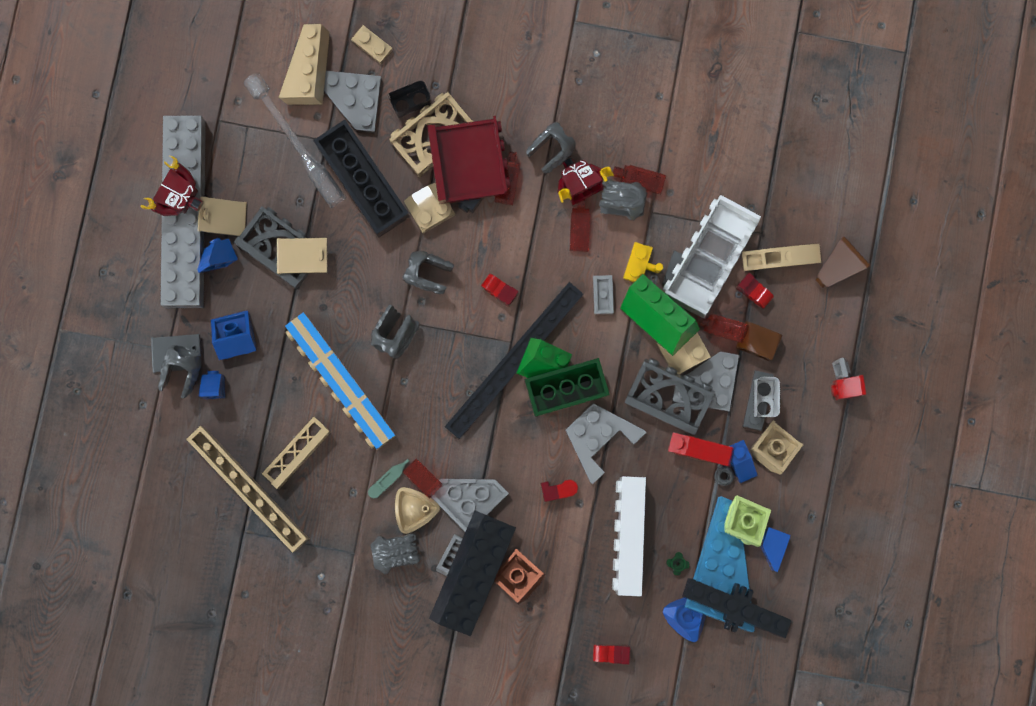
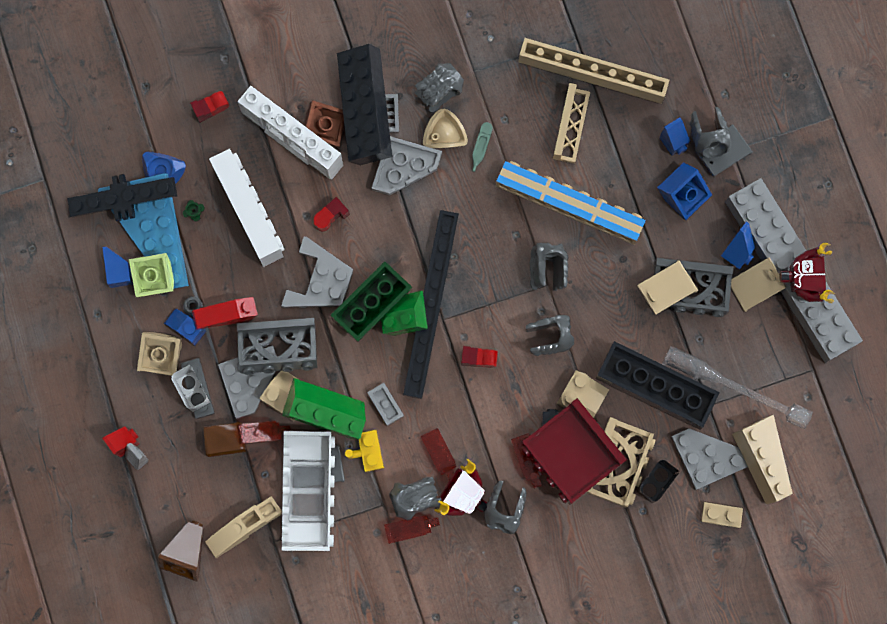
camera: 150 degrees right, 5 degrees down
(423, 478) = (451, 160): clear red tile -> none
(554, 583) = (290, 133): none -> white window
(755, 291) = (252, 483): leg -> none

